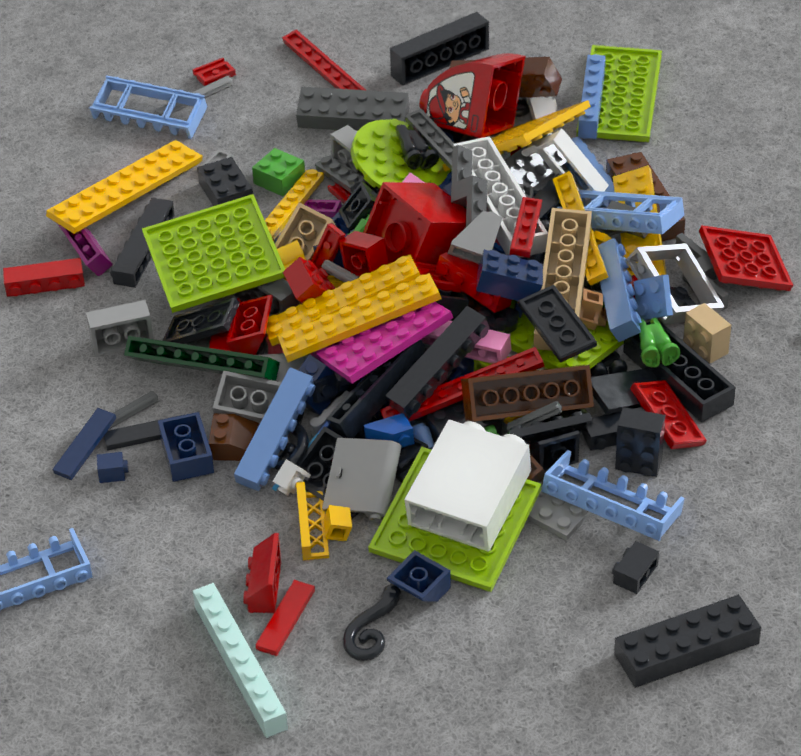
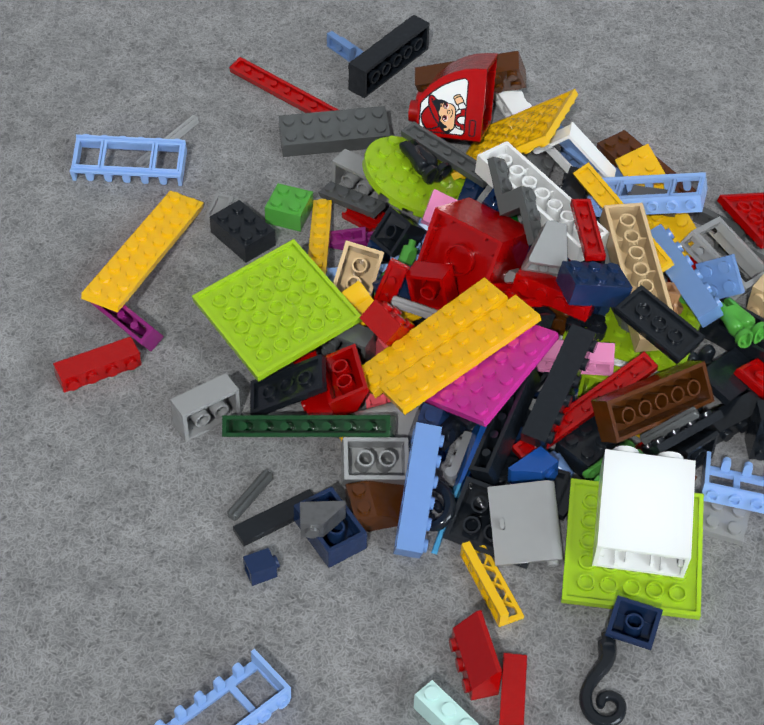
camera: 20 degrees left, 5 degrees up
(84, 444) = (220, 545): dark blue tile -> none
(136, 254) = (183, 310): black brick -> none
(173, 432) = (320, 517): none -> flat silver slope
(213, 71) = (176, 112): red plate -> none
(288, 476) = (451, 539): white brick -> none
(337, 523) = (520, 579): yellow brick -> none
(400, 32) = (342, 46): none -> medium blue panel
(593, 93) = (551, 74): medium blue brick -> none
(627, 92) = (571, 61): lime plate -> none

